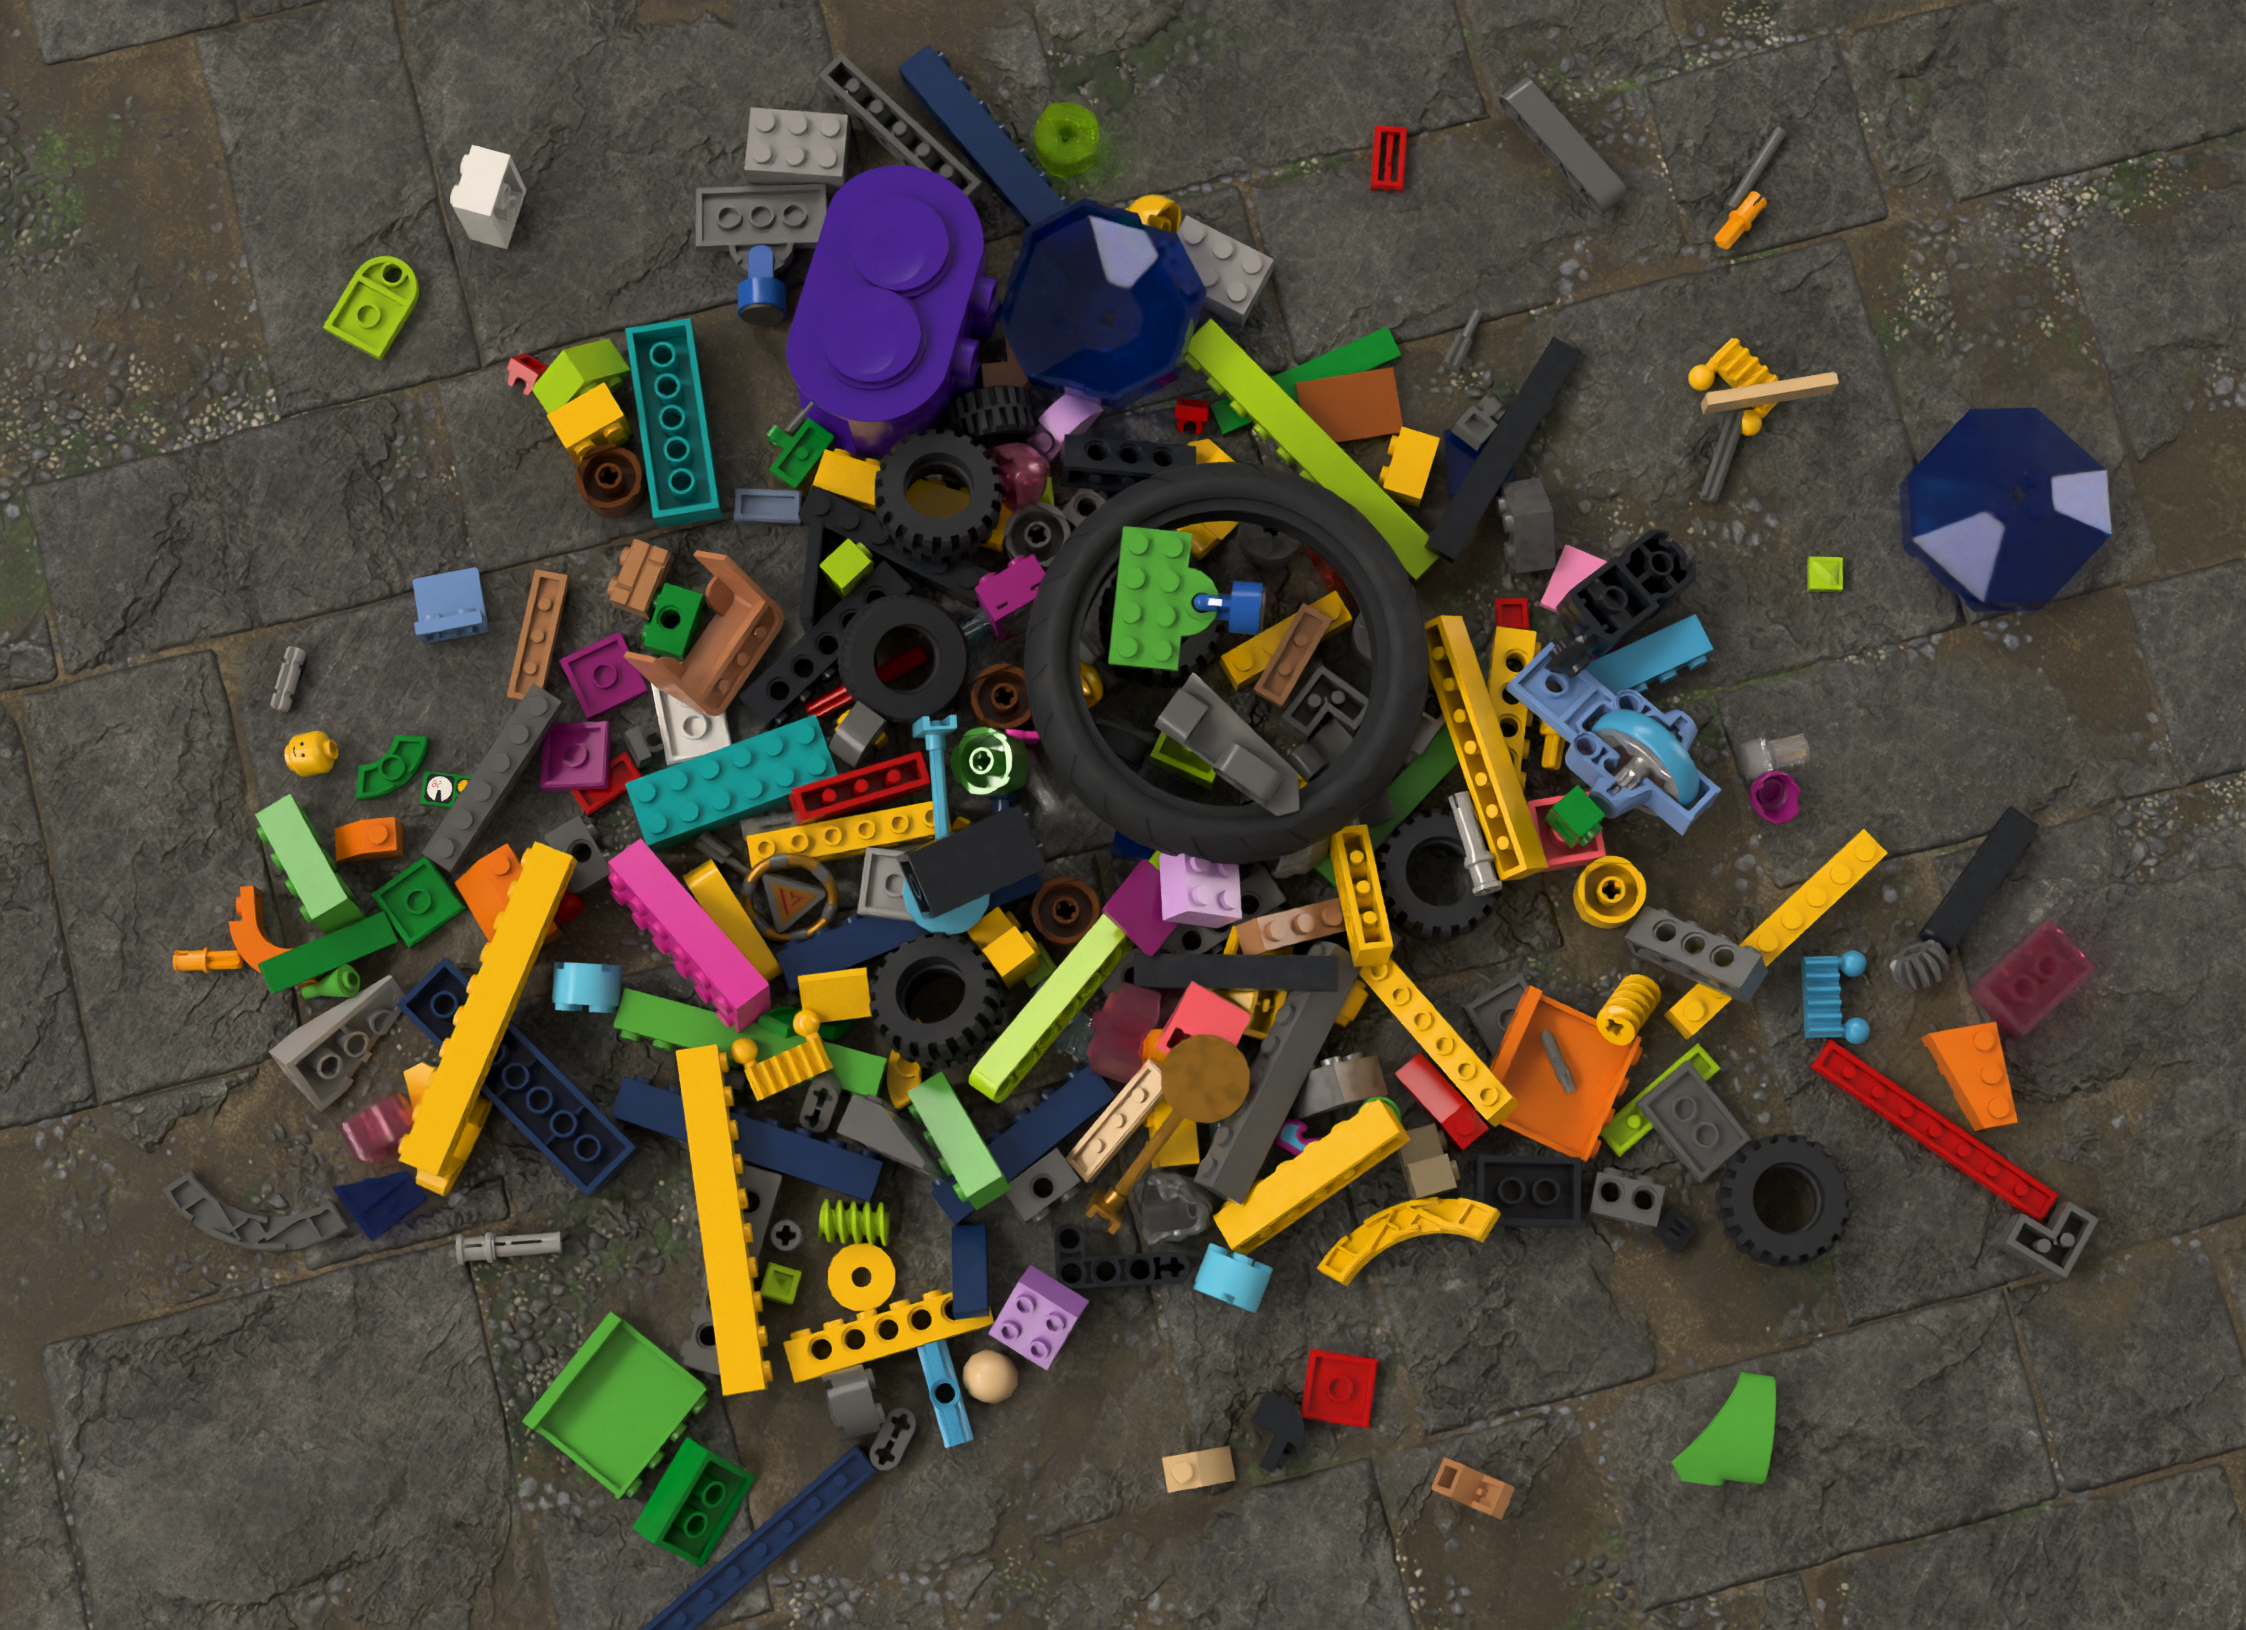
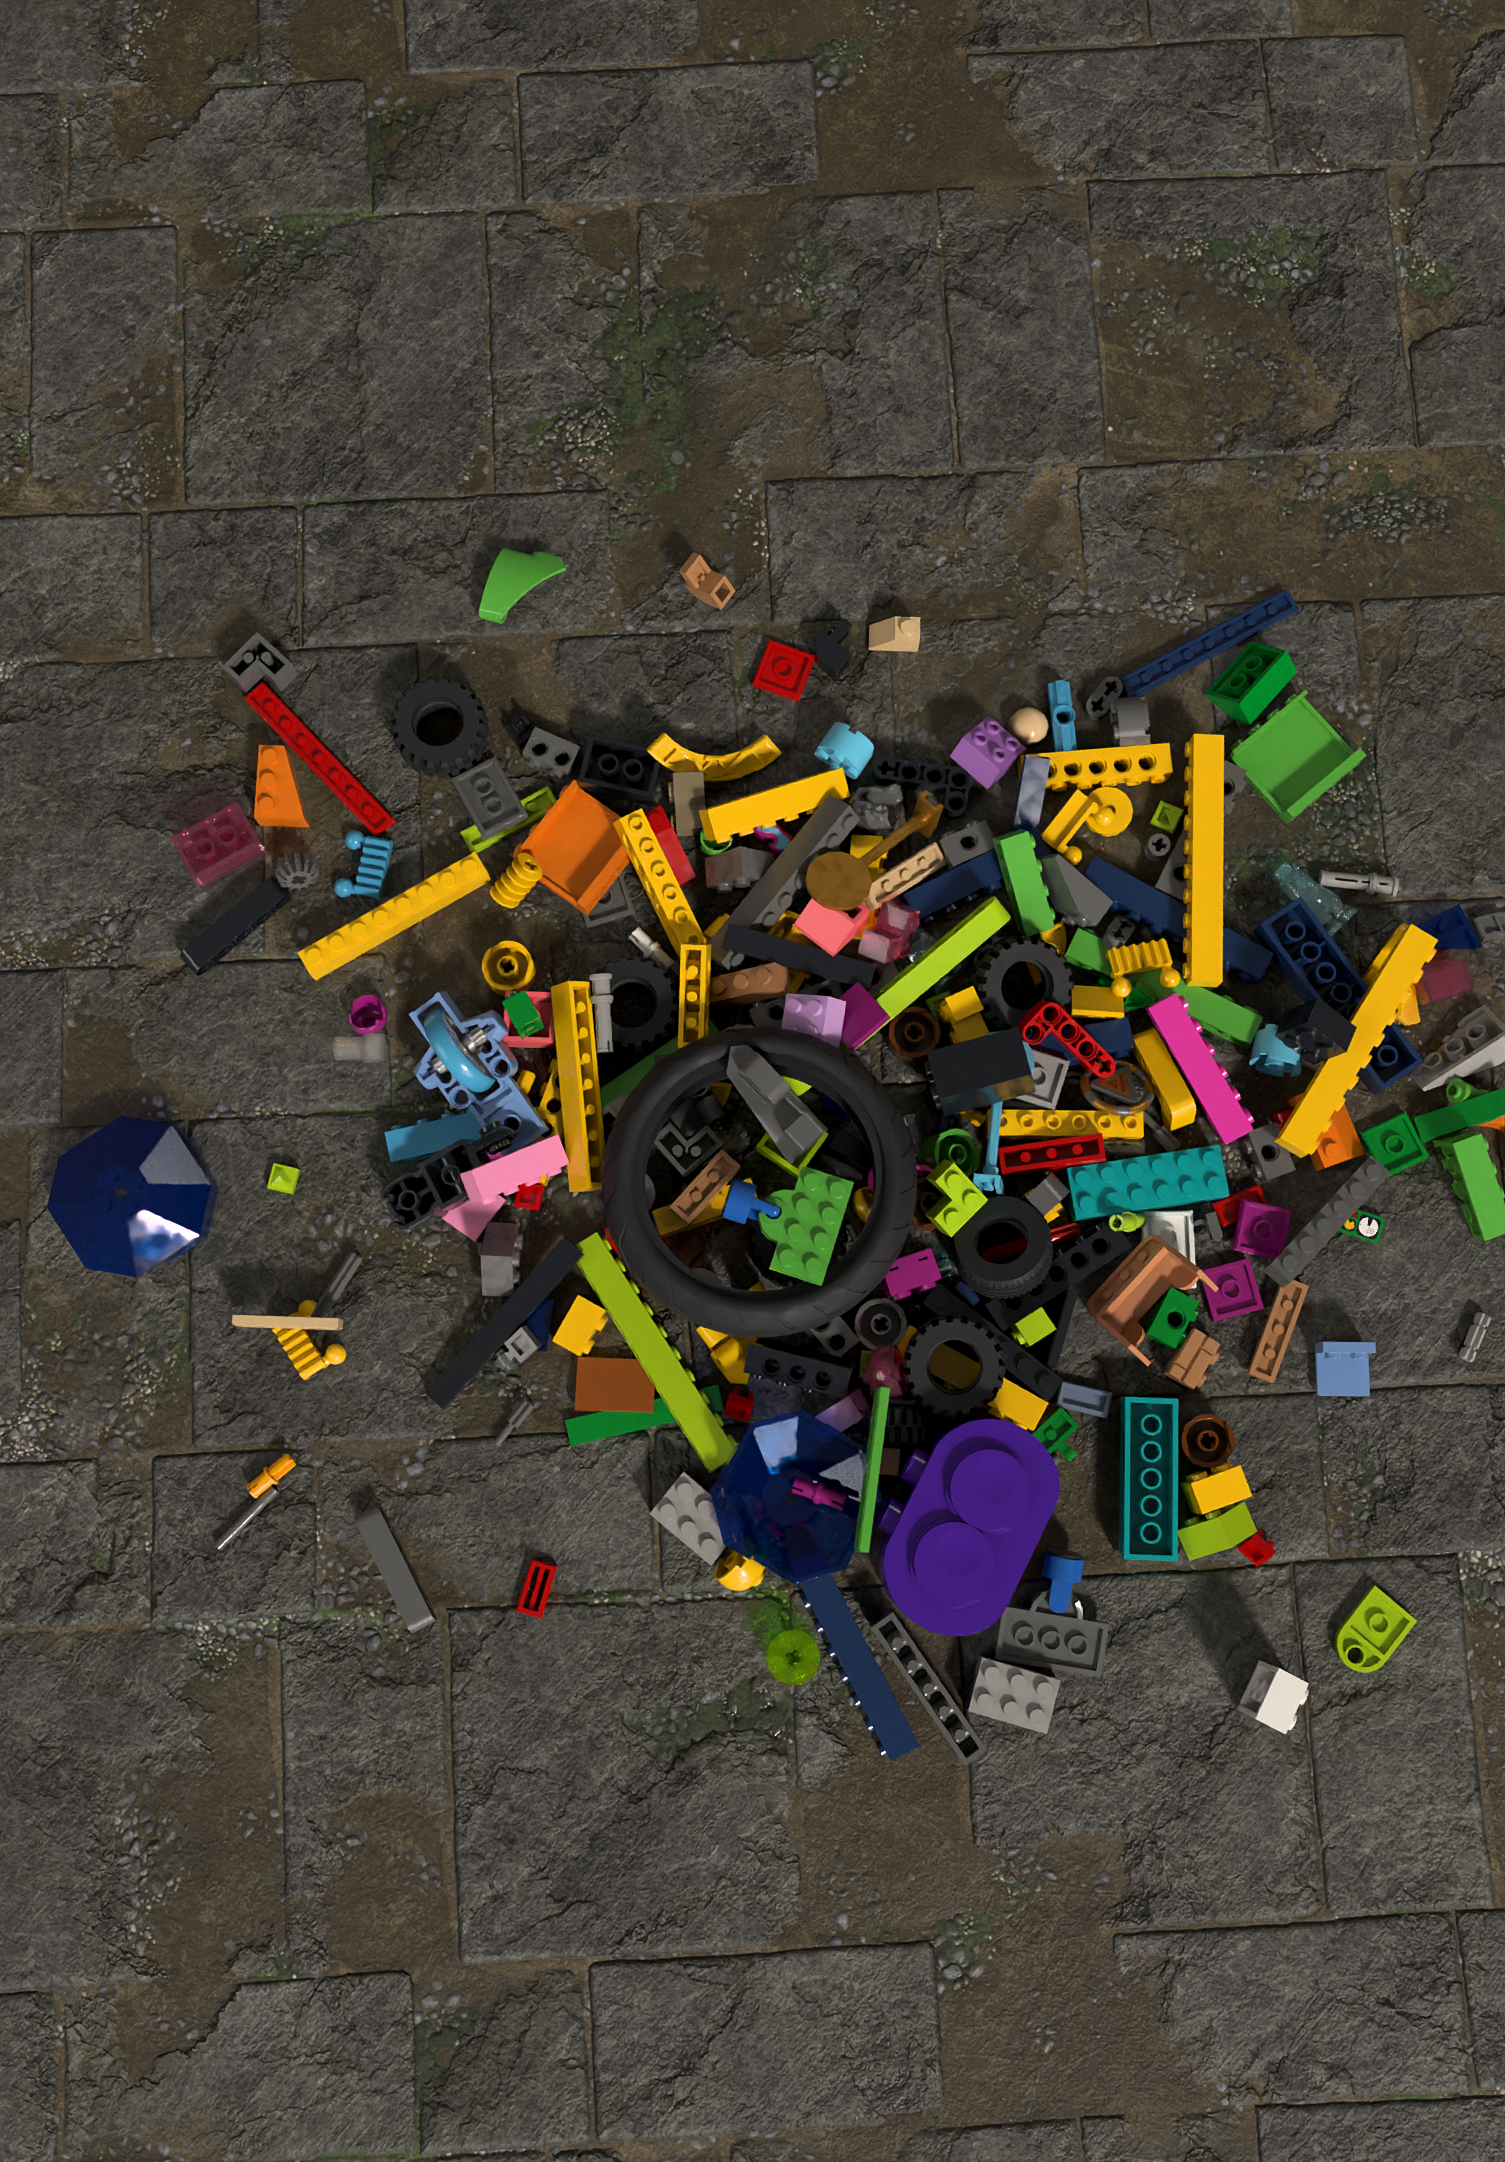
camera: 170 degrees left, 0 degrees up
(311, 753) = (1464, 1272): yellow head -> none
(369, 840) = (1425, 1197): orange slope -> none
(394, 769) = (1400, 1250): green tile -> none
(546, 999) = (1315, 1031): none -> black brick
(565, 1206) = (1318, 898): none -> clear light blue piece
(749, 723) = (1127, 1221): none -> lime pin
(854, 1222) = (1106, 846): lime piece -> none
(861, 932) = (1071, 1041): none -> red beam
(911, 1246) = (1068, 822): none -> yellow gear
(930, 593) = (966, 1294): none -> dark blue tile
(972, 694) = (959, 1200): none -> lime brick
(1016, 345) = (871, 1470): none -> bright green tile
(1073, 322) = (819, 1493): none -> magenta pin
(1429, 960) = (650, 948): none -> white pin
(1536, 619) = (514, 1169): none -> bright pink brick
(1558, 1063) = (575, 850): dark grey piece -> none
(1736, 980) = (432, 874): dark grey brick -> none

